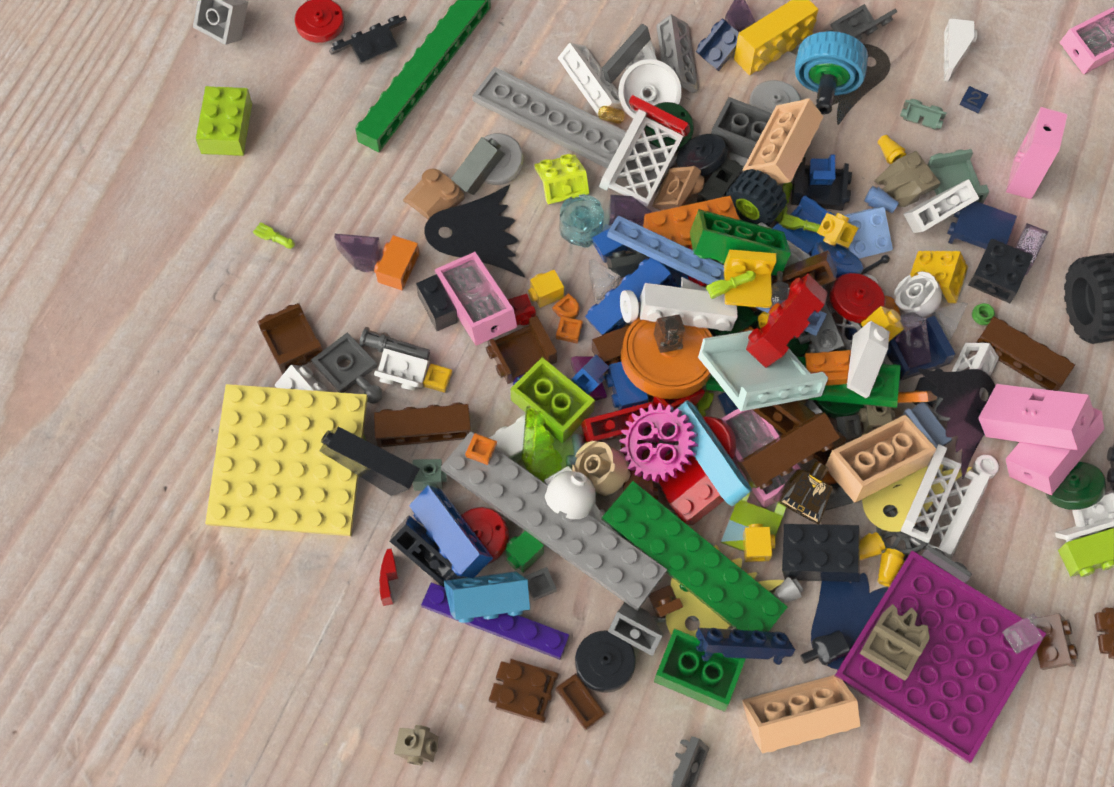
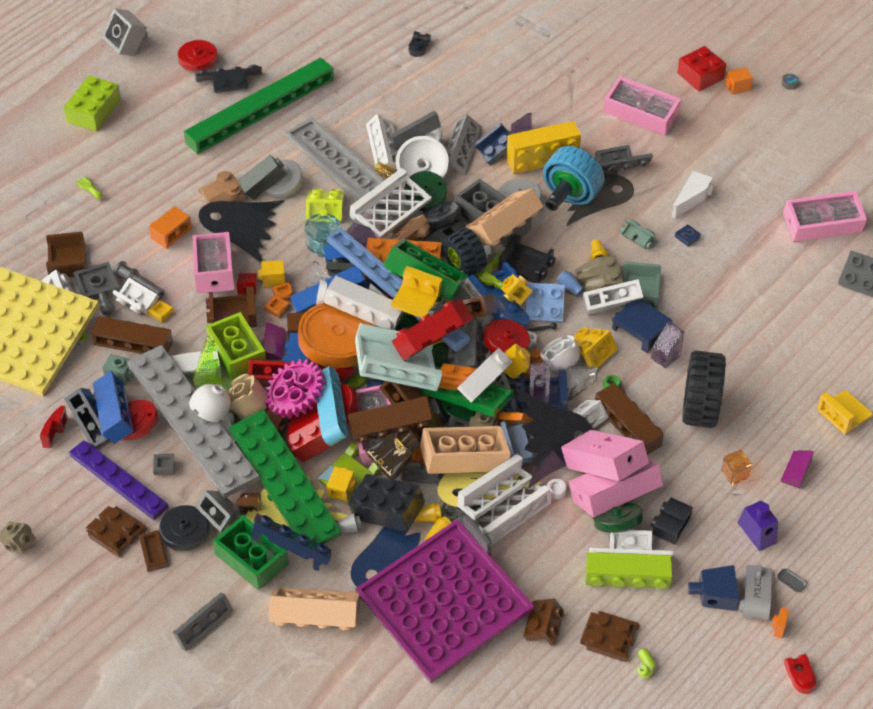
camera: 20 degrees right, 15 degrees down
(359, 251) = (146, 211): clear purple slope -> none
(369, 461) = (75, 342): black slope -> none
(436, 302) = (184, 260): black brick -> none
(481, 449) = (160, 356): orange tile -> none
(487, 596) = (117, 455): dark azure slope -> none
(523, 551) = (162, 439): green brick -> none
(591, 374) = (272, 334): blue brick -> none
(660, 116) = (417, 177): red tile -> none
(669, 333) = (339, 315): clear smoke brick -> none
(722, 286) = (394, 292): lime piece -> none
(822, 171) = (531, 250): blue panel -> none
(827, 648) = (359, 571): black piece -> none
(896, 642) = (409, 575): dark tan plate -> none
(1001, 271) = (637, 354): black bracket -> none
(1023, 634) = (513, 597): clear panel -> none
(1036, 152) = (704, 275): bright pink brick -> none

